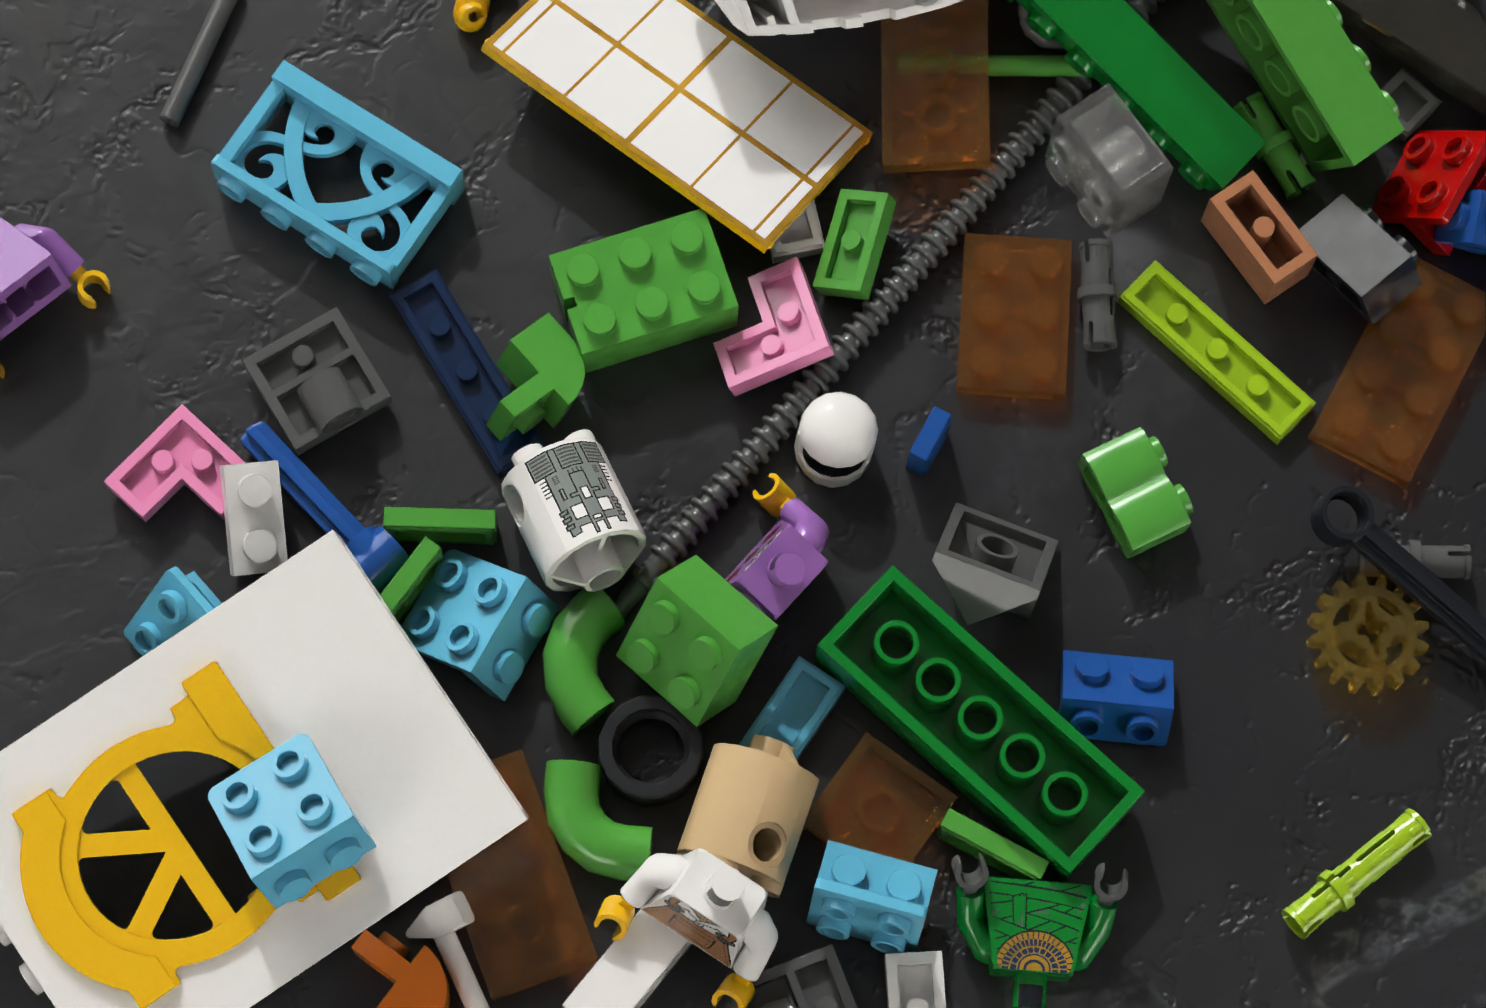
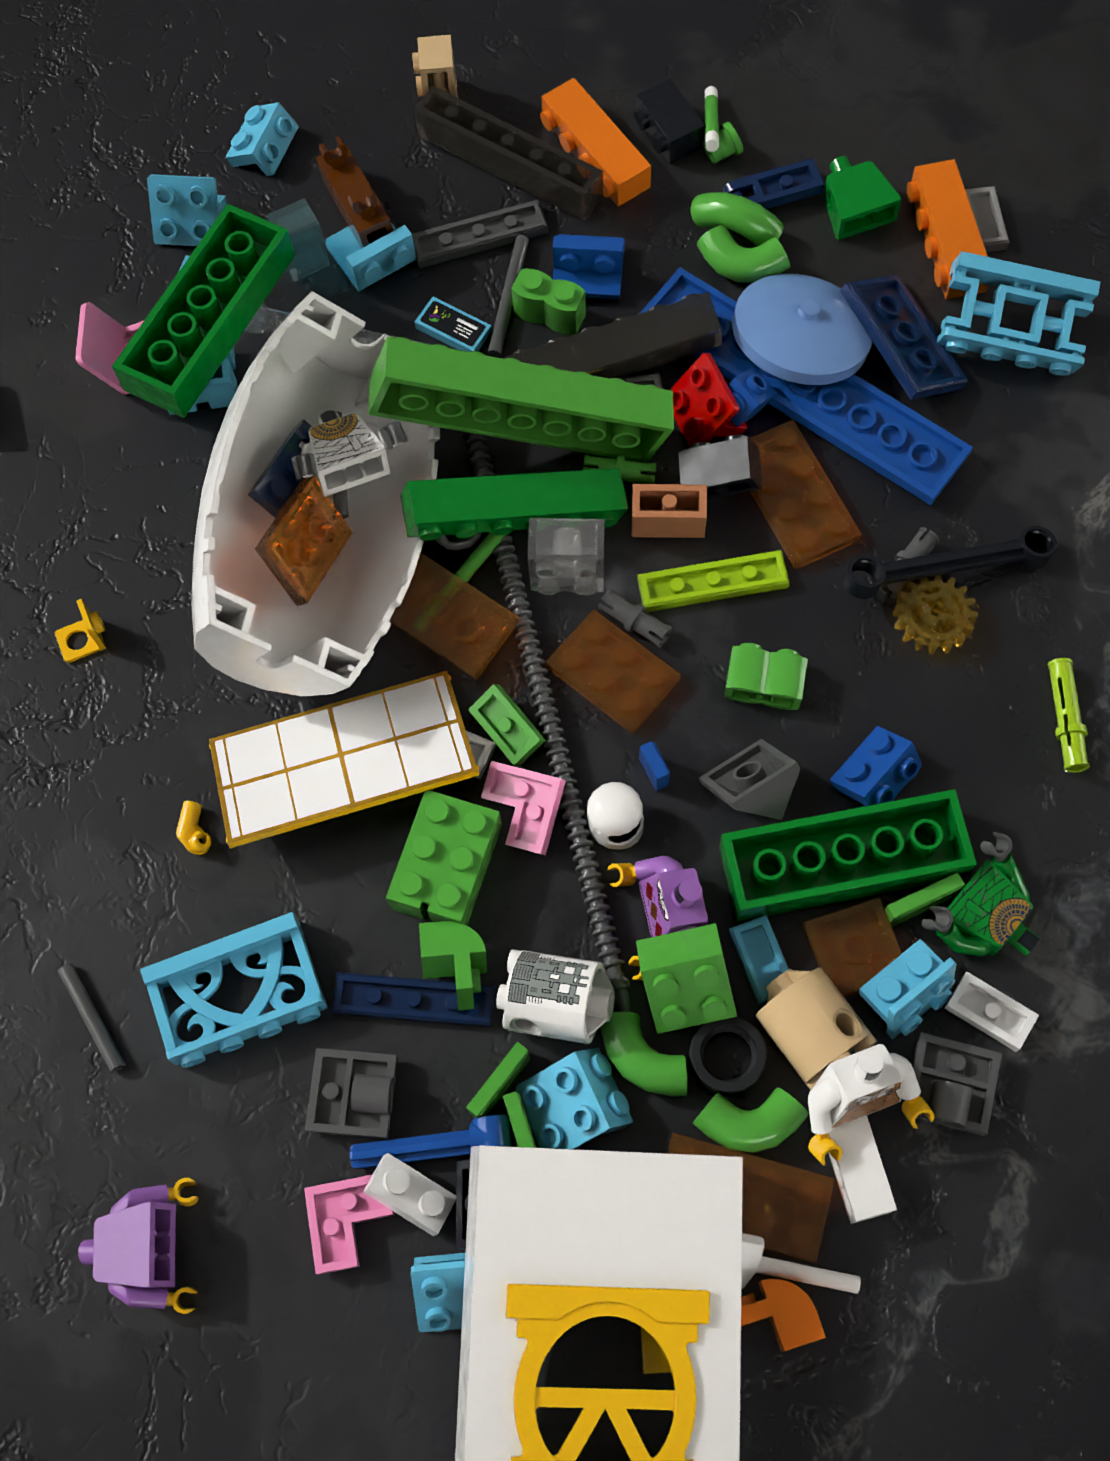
camera: 45 degrees left, 5 degrees down
(289, 821) = (645, 1310): medium azure bracket -> none

